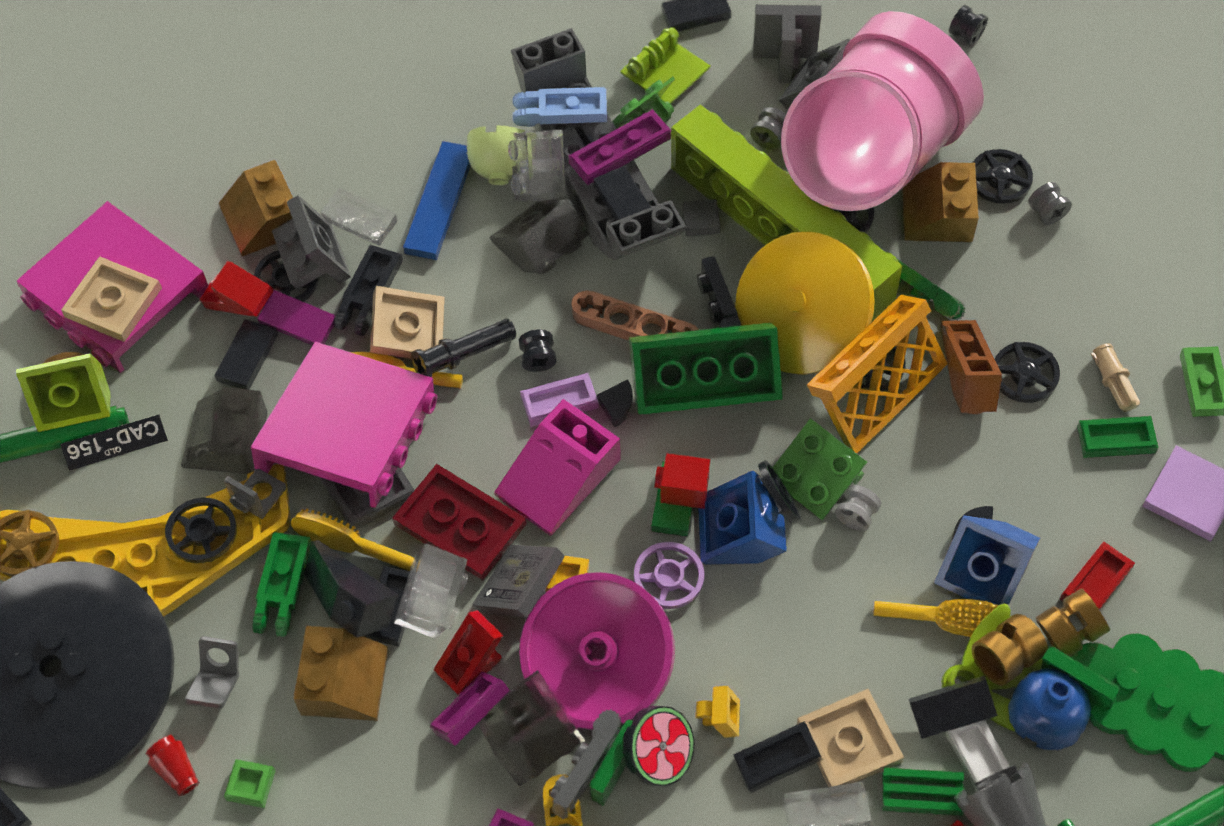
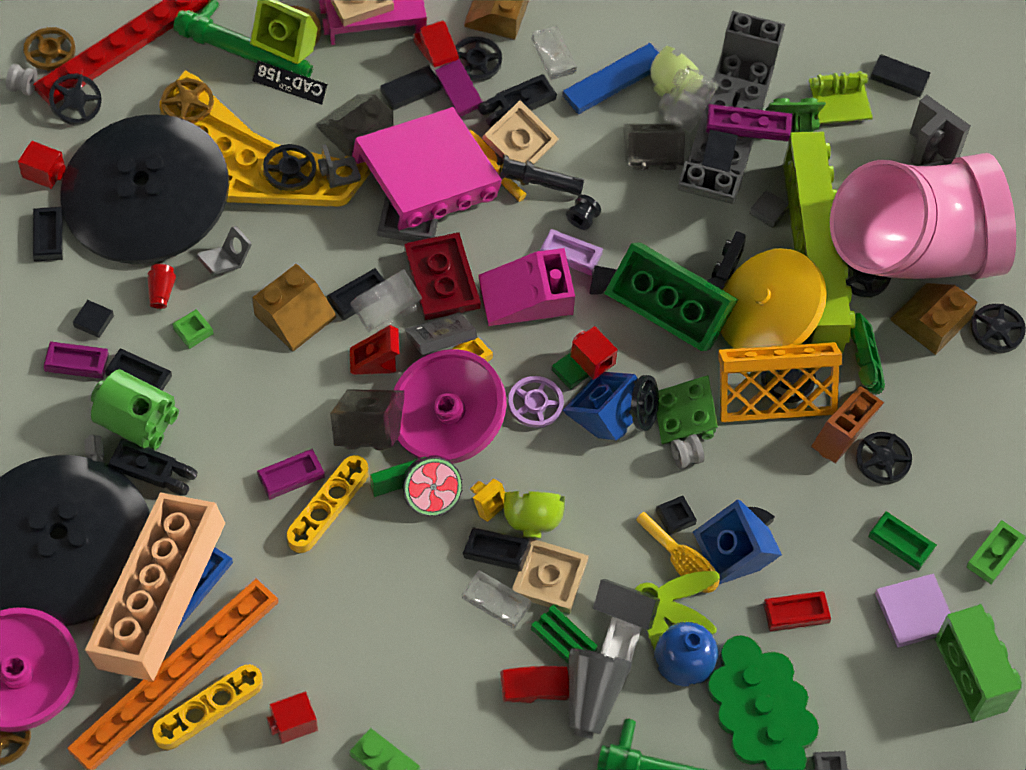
camera: 35 degrees right, 0 degrees up
(281, 581) = (309, 232): green hinge -> none
(309, 246) = (506, 48): dark grey bracket -> none
(344, 539) = (366, 233): yellow piece -> none
(348, 593) = (337, 266): black slope -> none
(469, 708) = (347, 382): magenta tile -> none
(560, 106) = (735, 70): light blue hinge -> none
(587, 762) = (361, 467): dark grey hinge -> none
(637, 316) = (655, 219): nougat beam -> none
(781, 689) = (533, 512): none -> lime cylinder
(904, 579) = (676, 515): none -> black tile
(1009, 649) = (691, 598): pearl gold wheel -> none
(1049, 203) = (1009, 367): dark grey wheel -> none
(1061, 631) = (737, 617): pearl gold wheel -> none
(1096, 686) = (720, 649): green tile -> none
(1115, 377) = (938, 504): tan axle -> none

